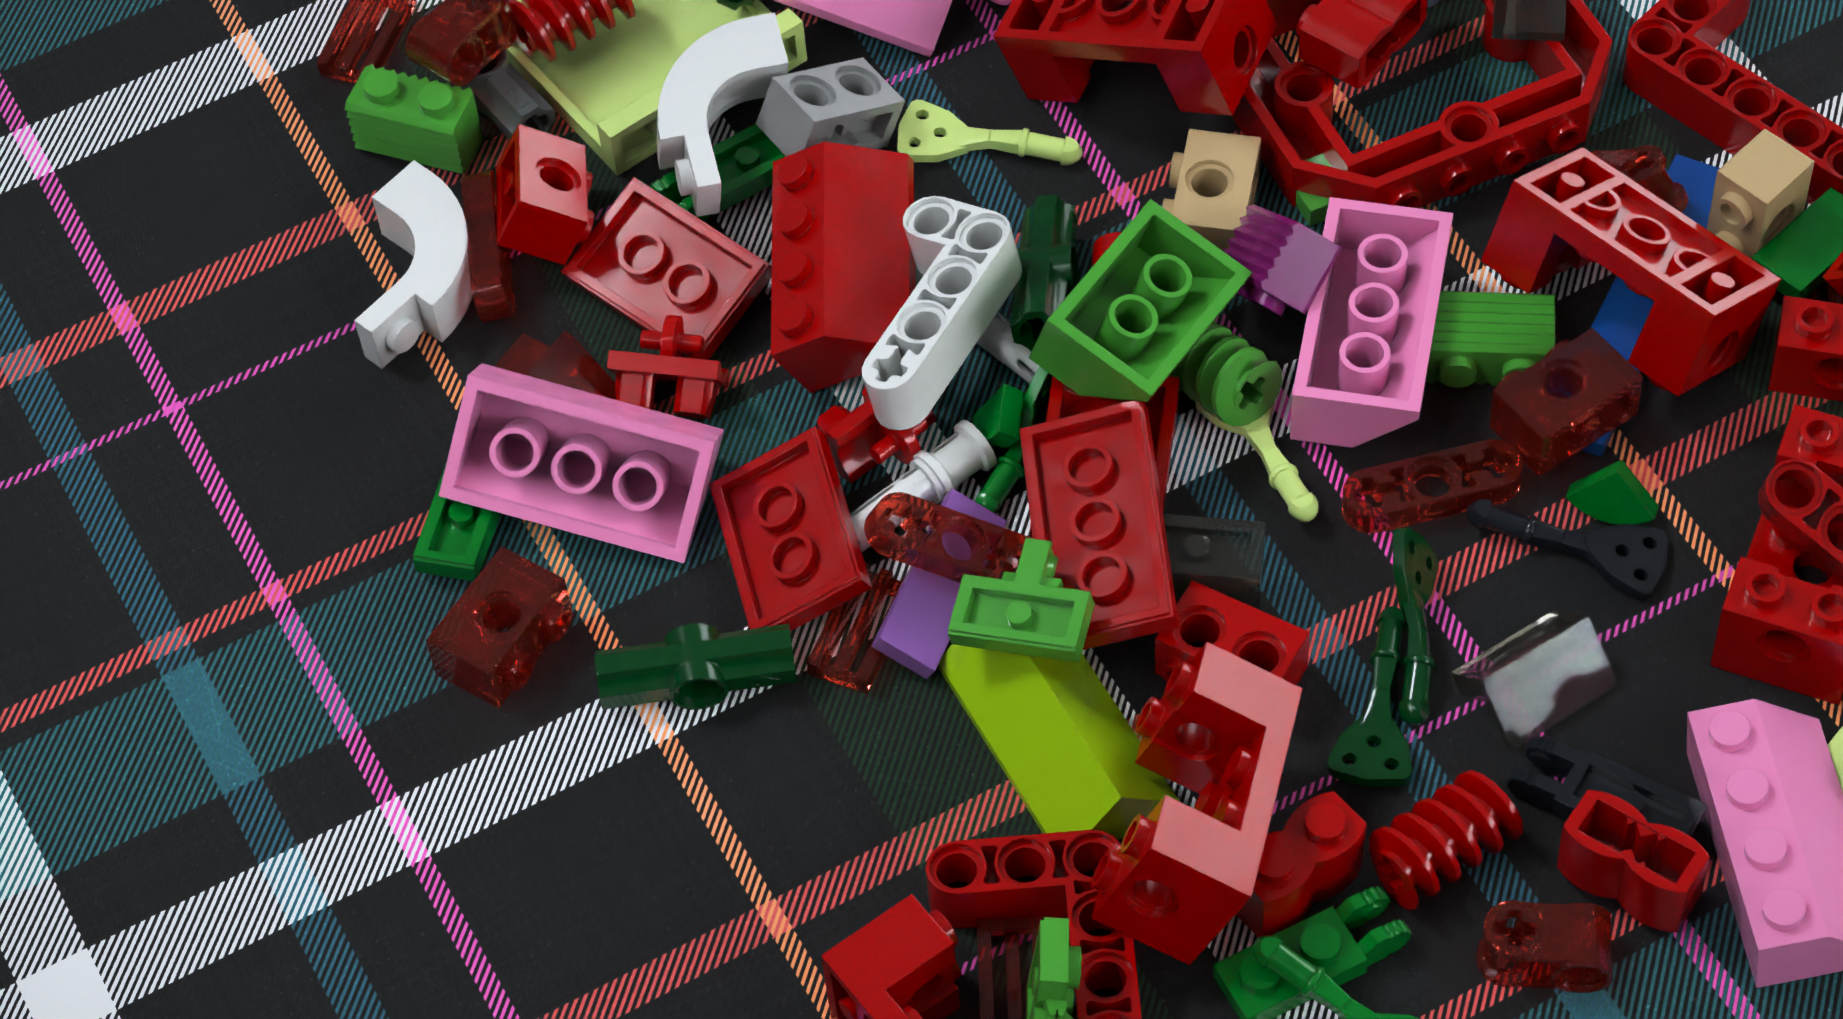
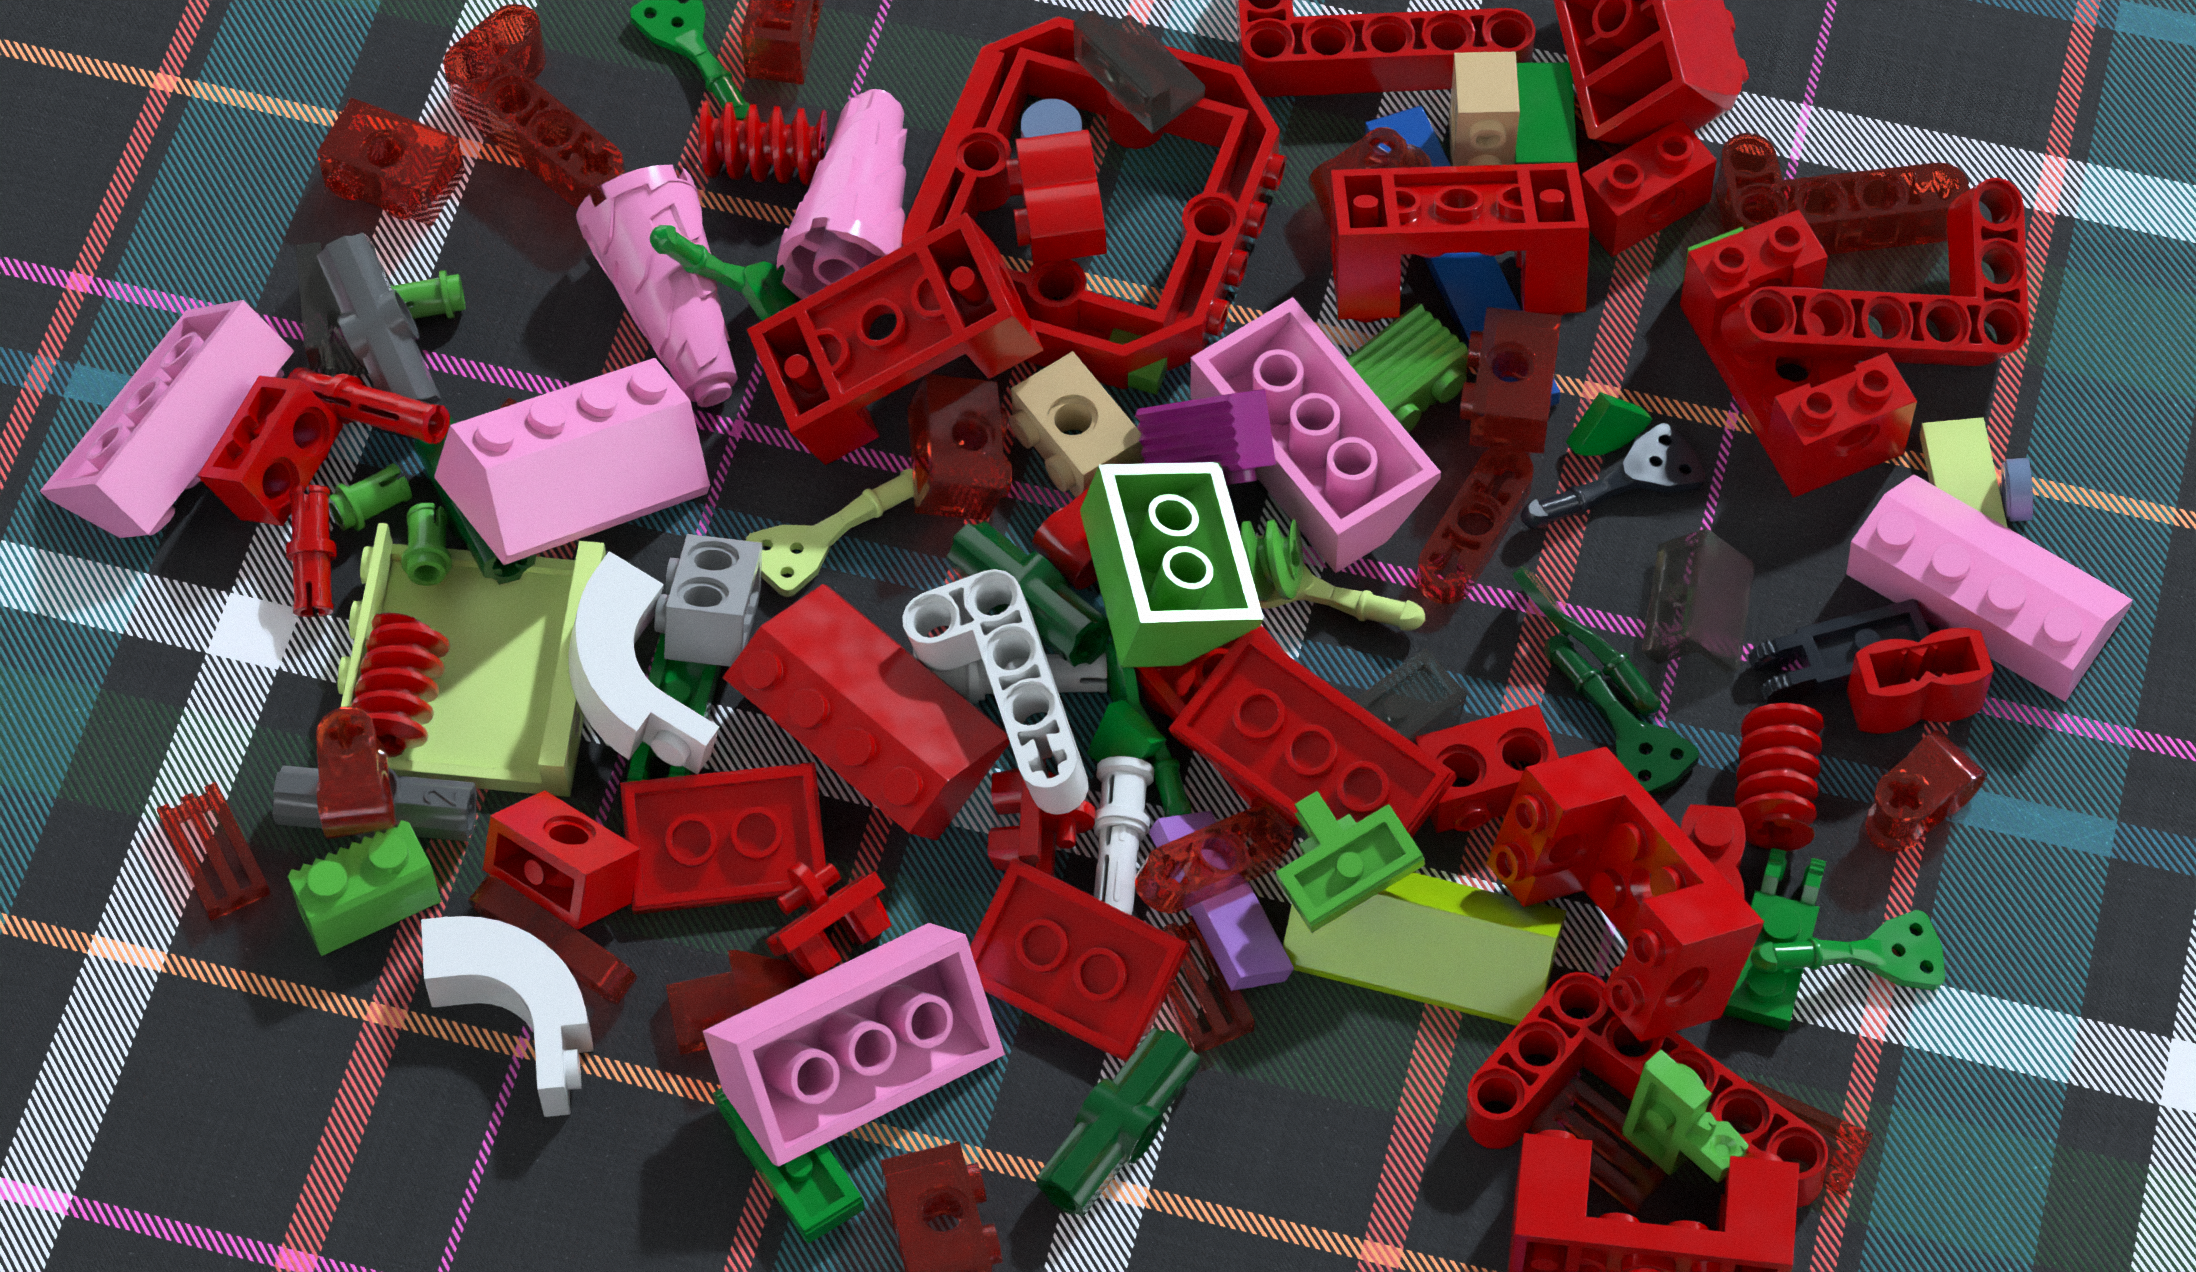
camera: 50 degrees left, 5 degrees up
(1127, 116) = (958, 447): none -> clear red brick

